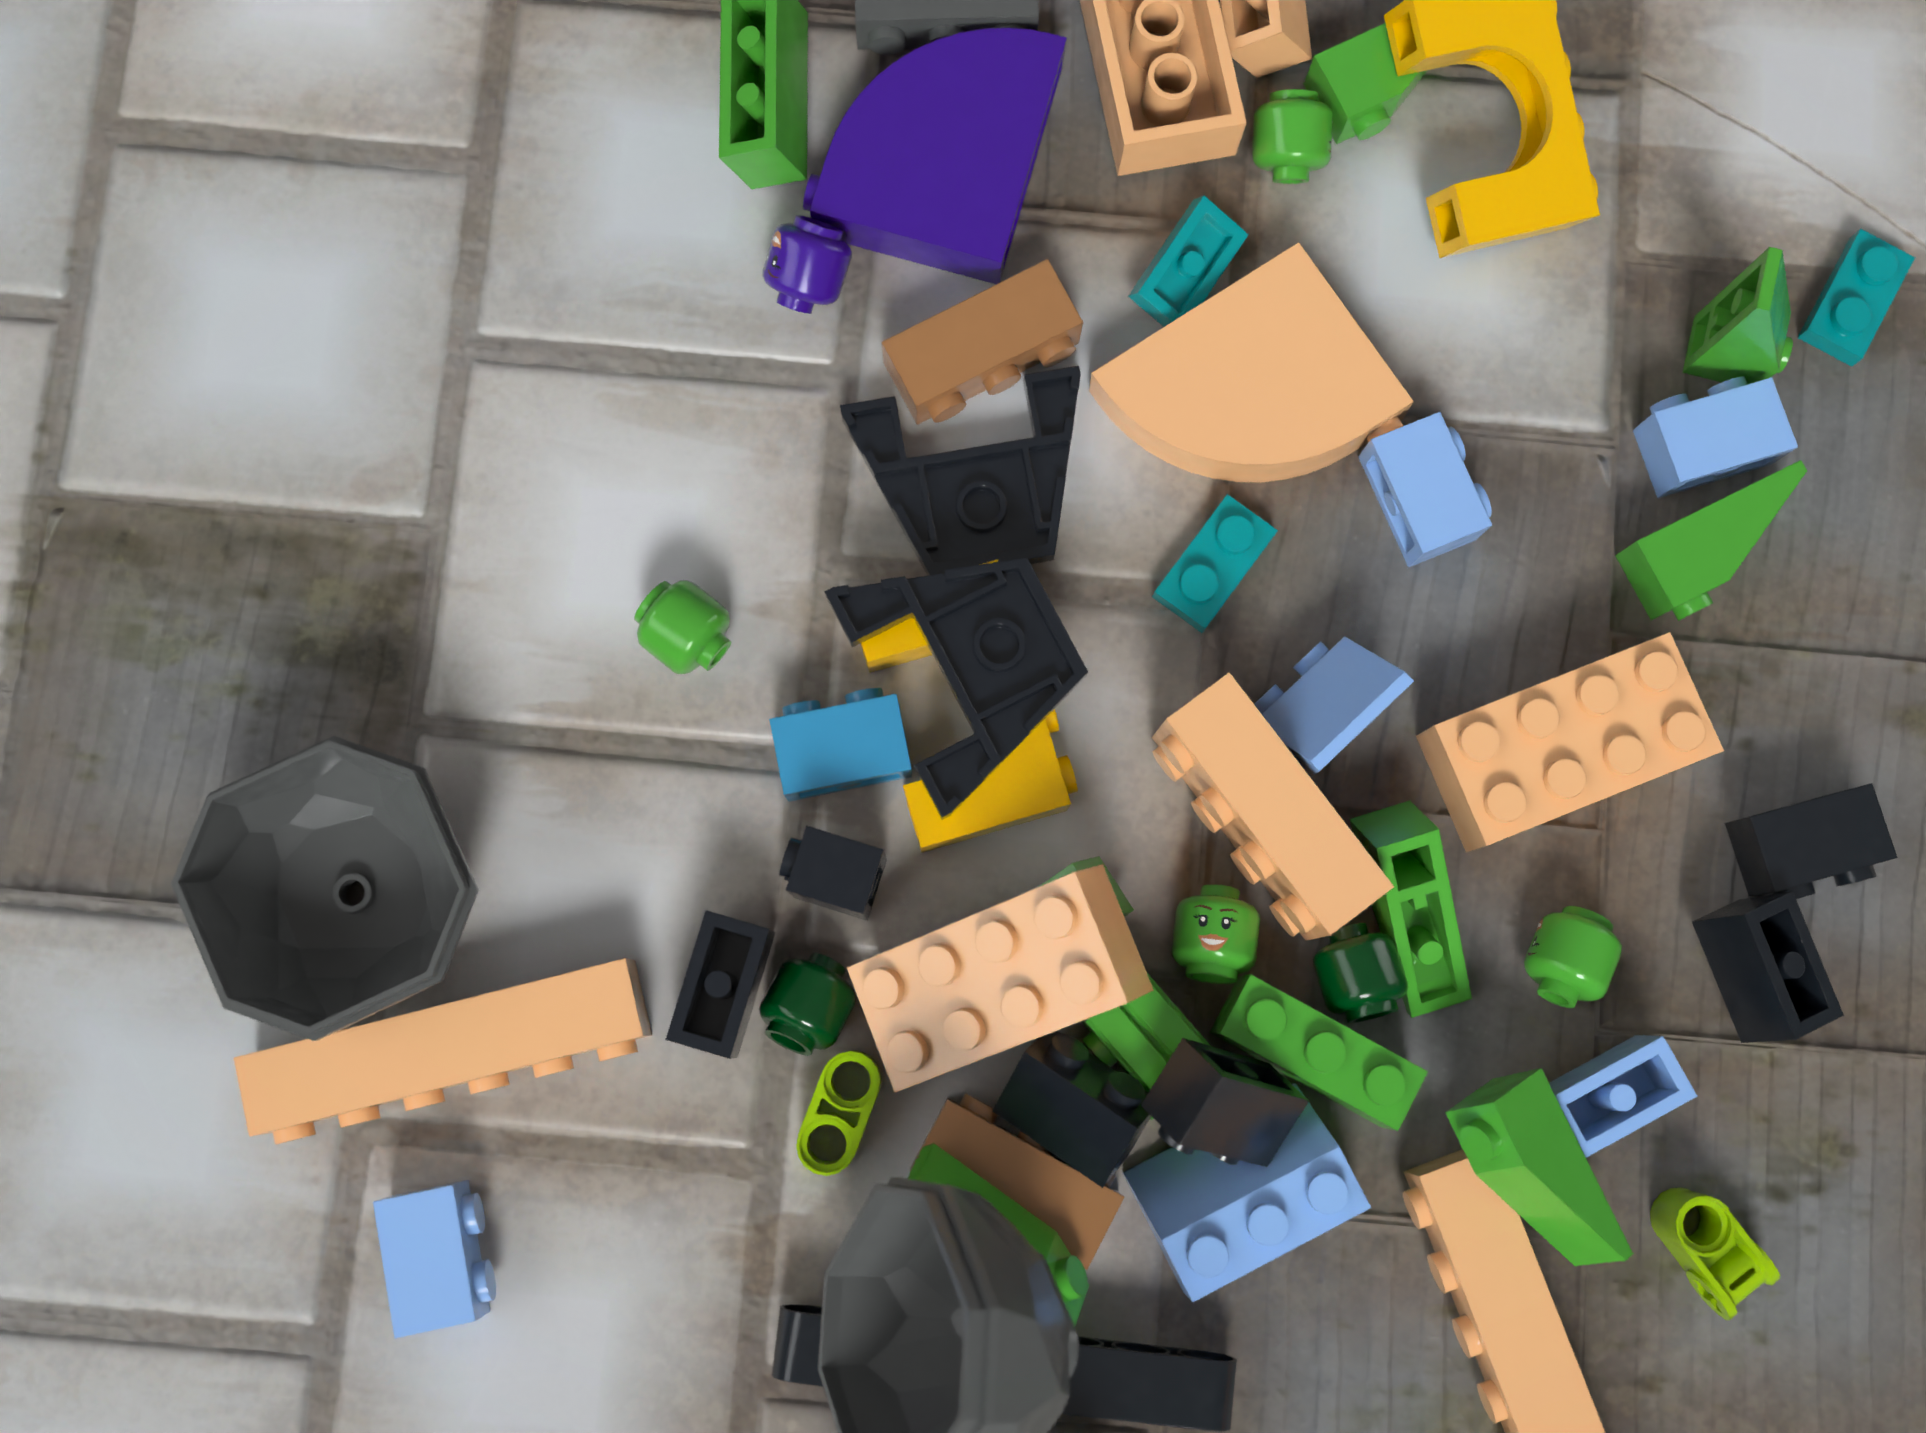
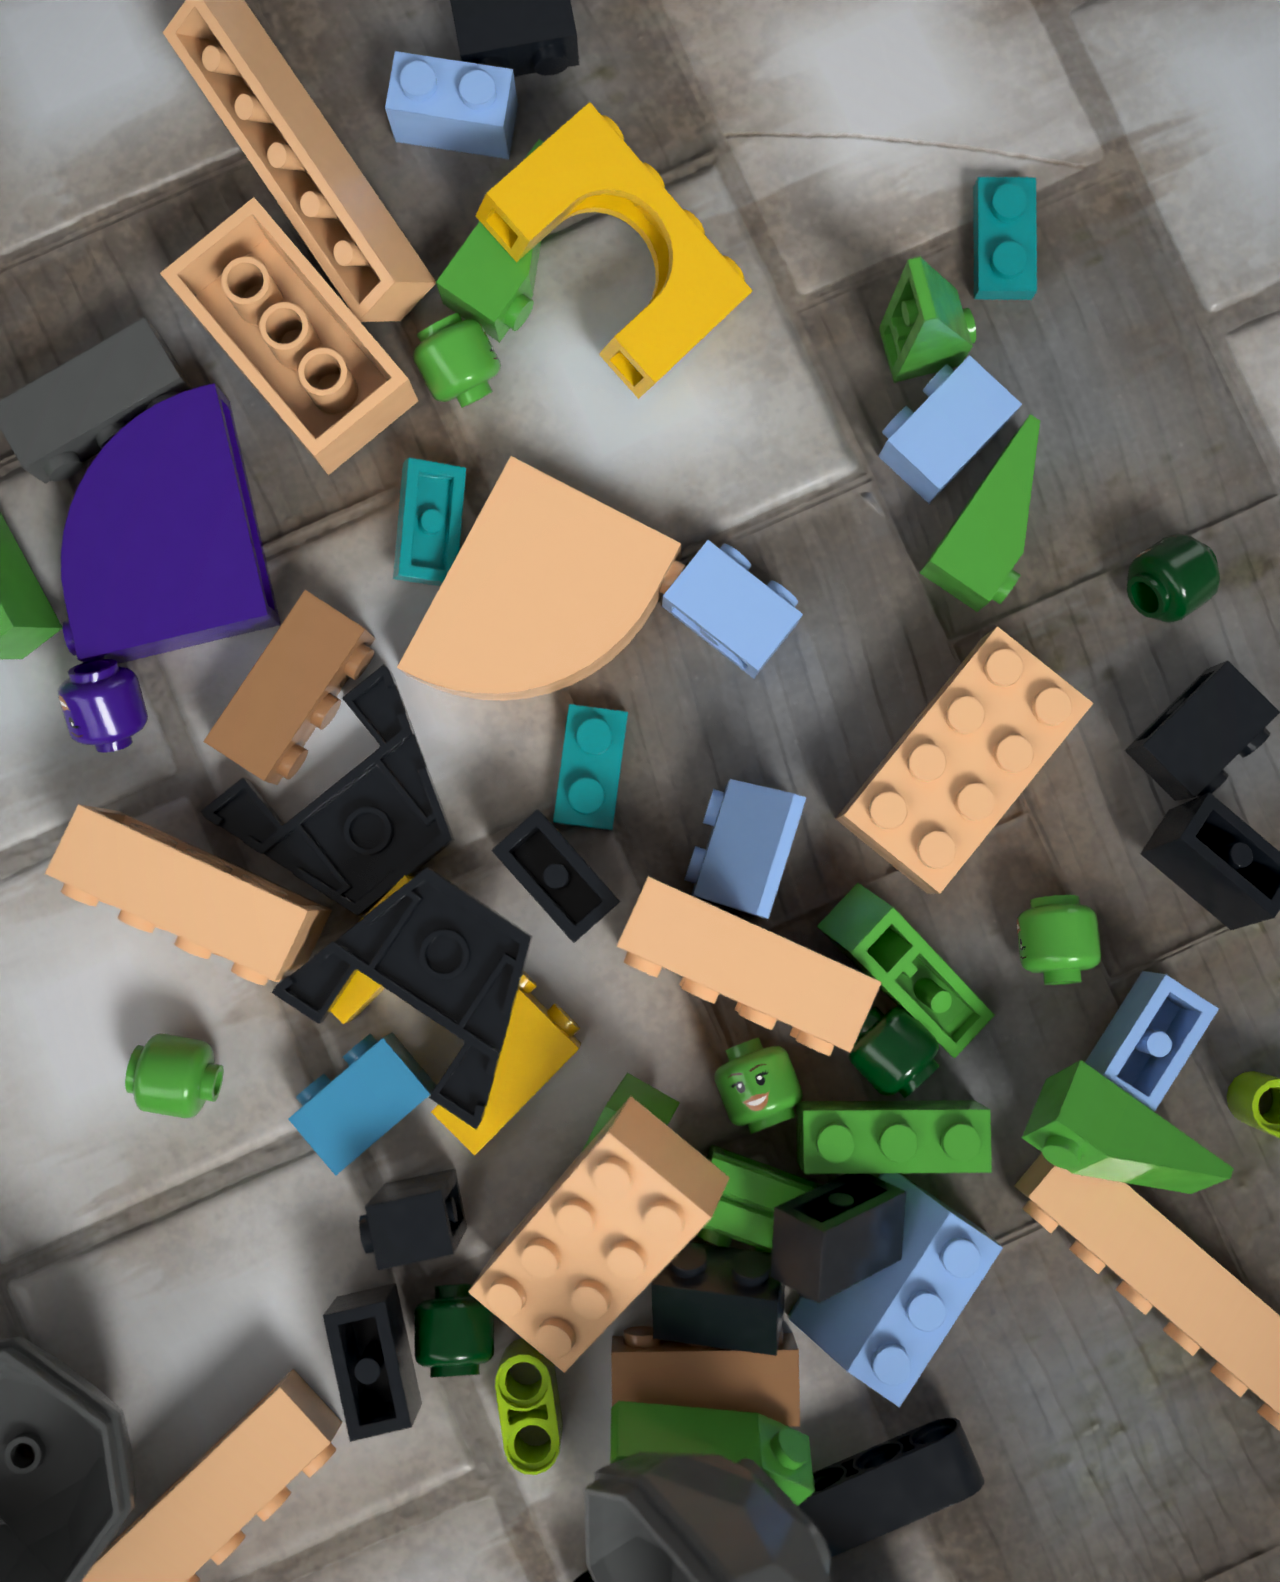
camera: 25 degrees left, 5 degrees up
(795, 465) = (188, 893): none -> light nougat brick
(1135, 638) = (556, 876): none -> black brick
(1856, 684) = (1173, 578): none -> dark green head

